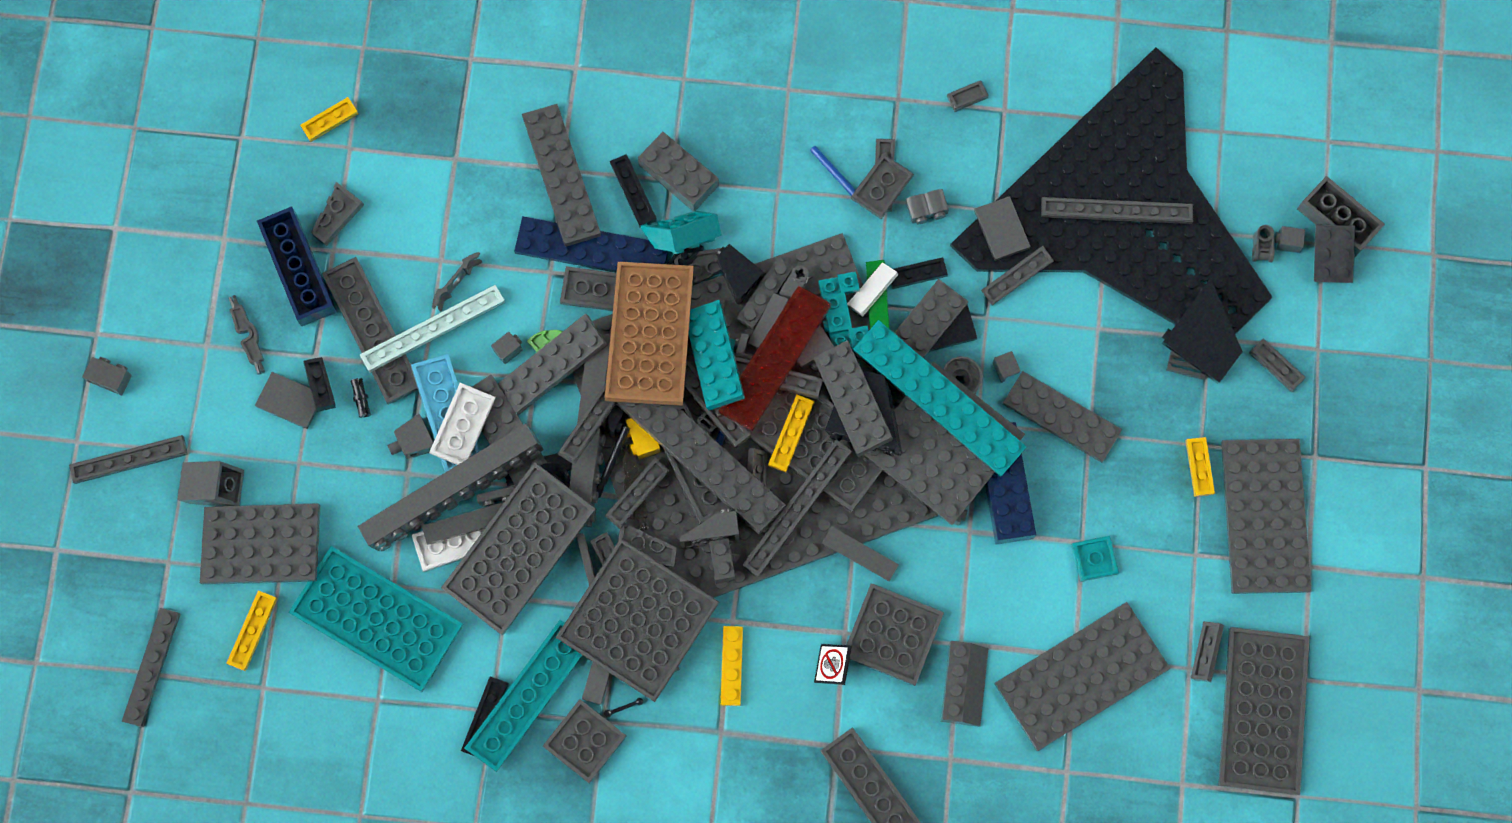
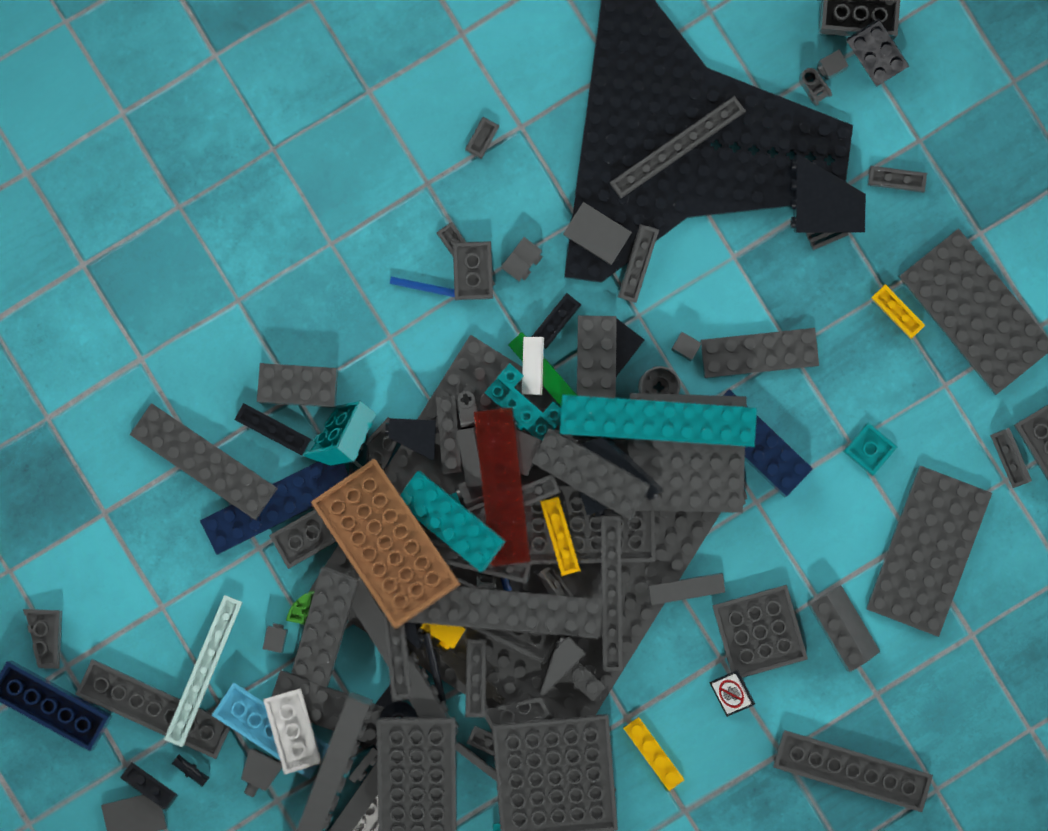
camera: 40 degrees left, 10 degrees up
(250, 343) = (63, 796): dark grey piece -> none
(445, 293) = (187, 637): dark grey piece -> none

